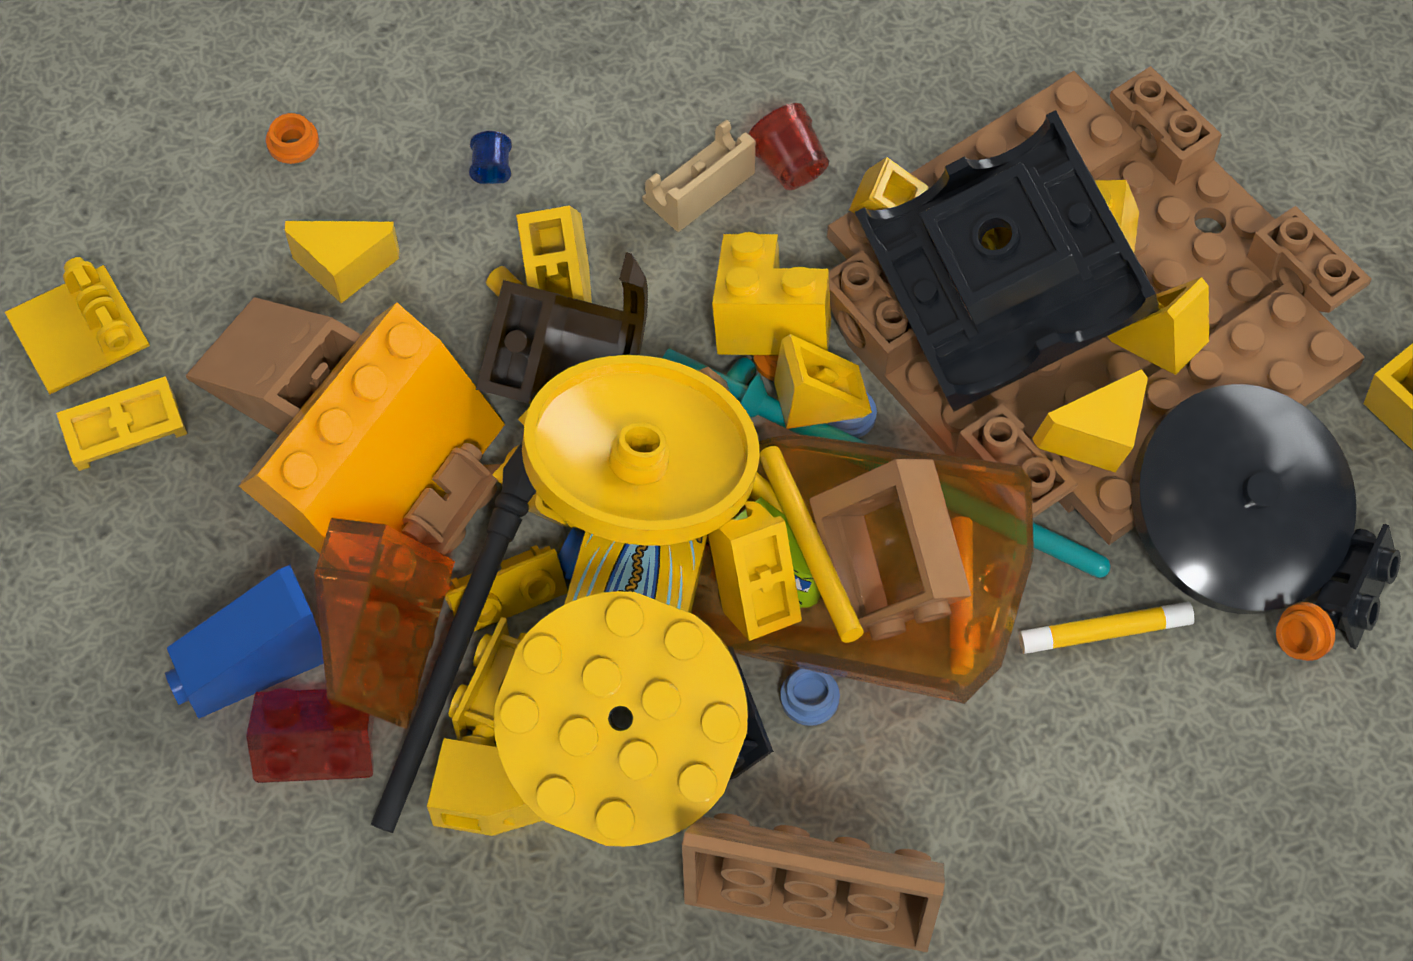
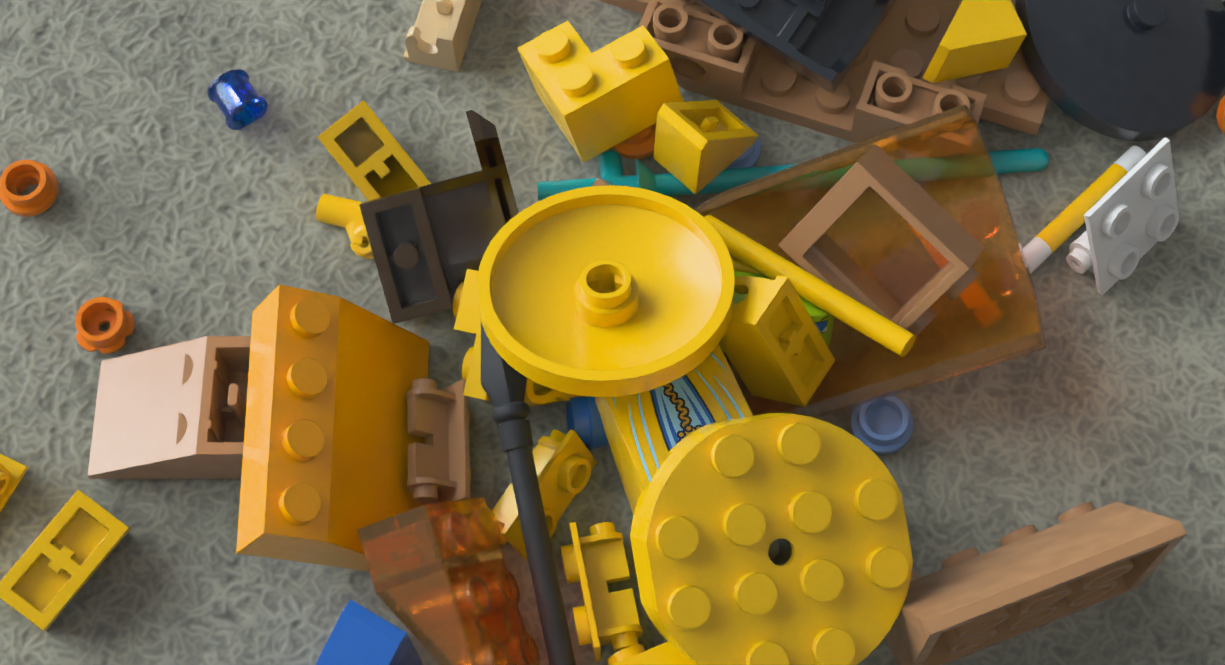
camera: 30 degrees left, 5 degrees up
(271, 260) = (93, 315): none -> orange plate
(342, 253) = (159, 270): yellow slope -> none
(1130, 652) = (1128, 220): none -> white hinge

